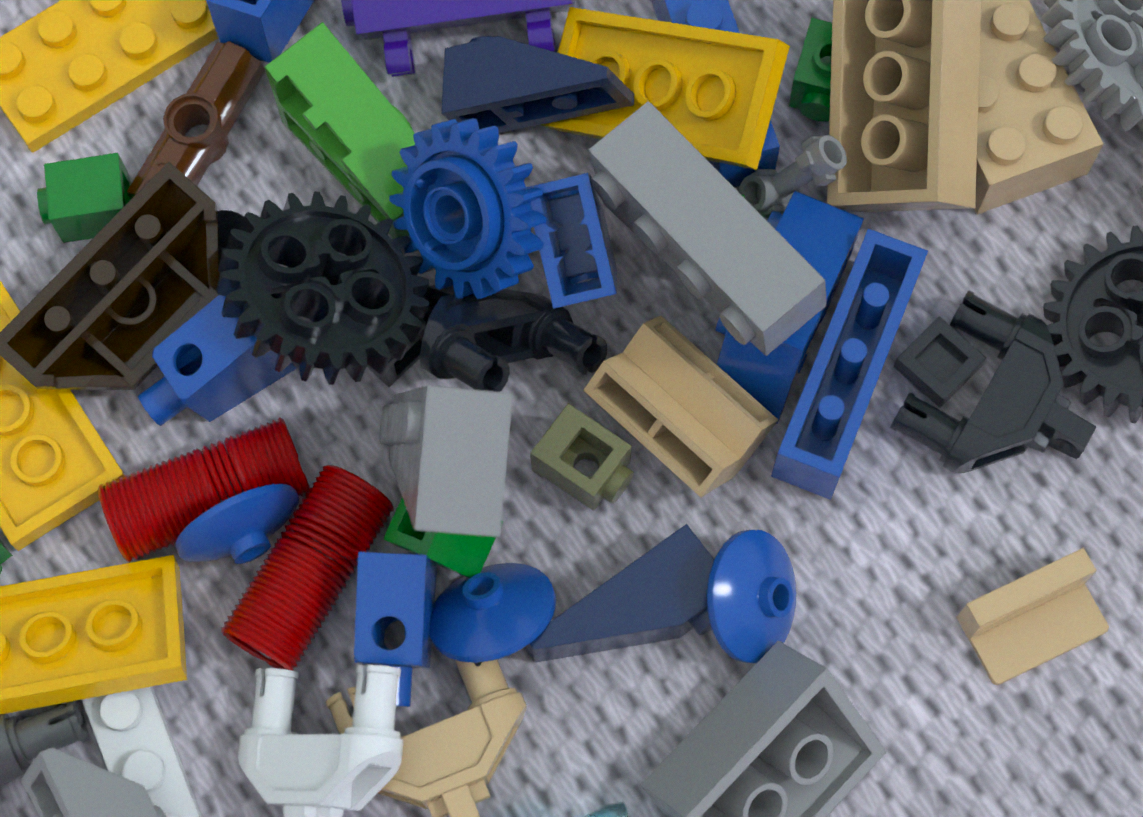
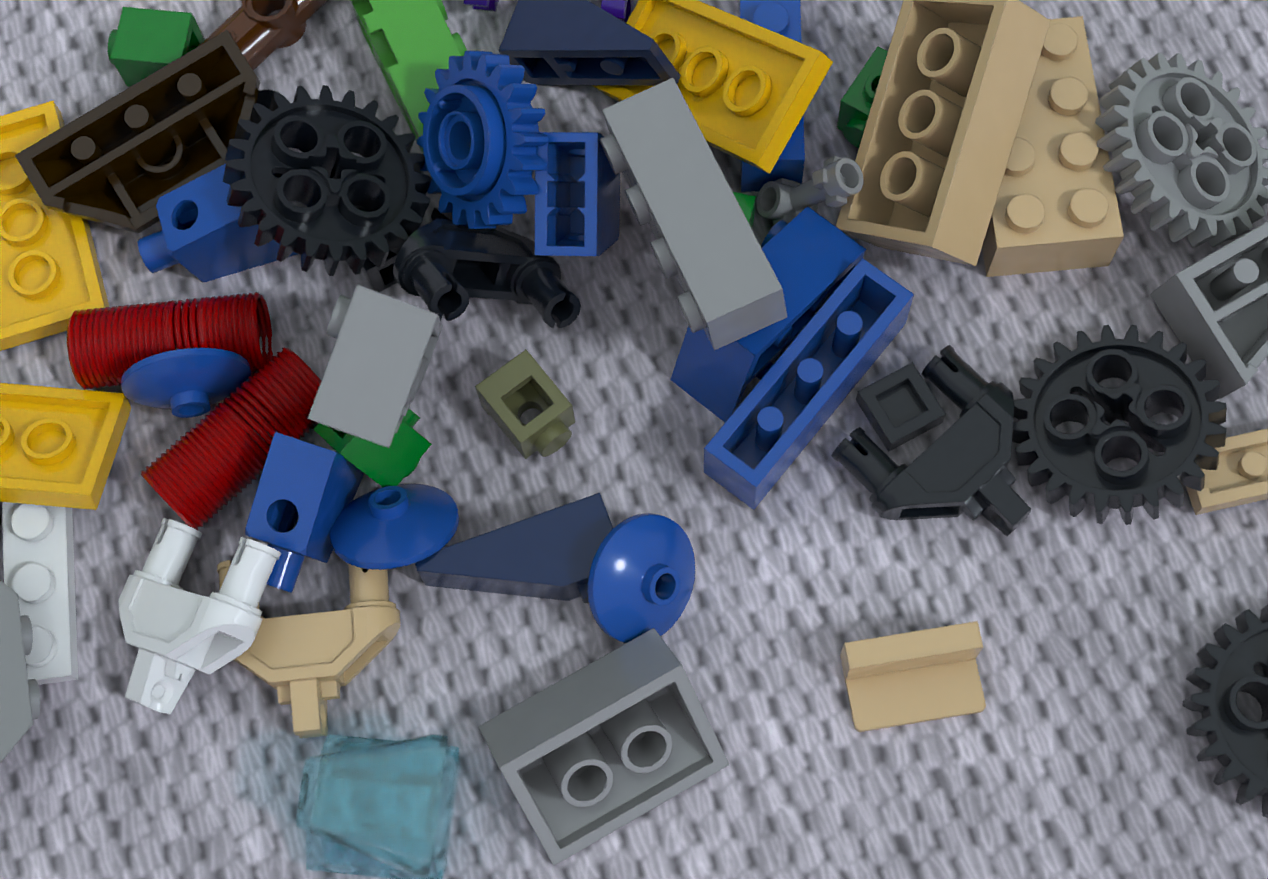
camera: 20 degrees right, 0 degrees up
(681, 406) = (633, 382): tan piece -> none

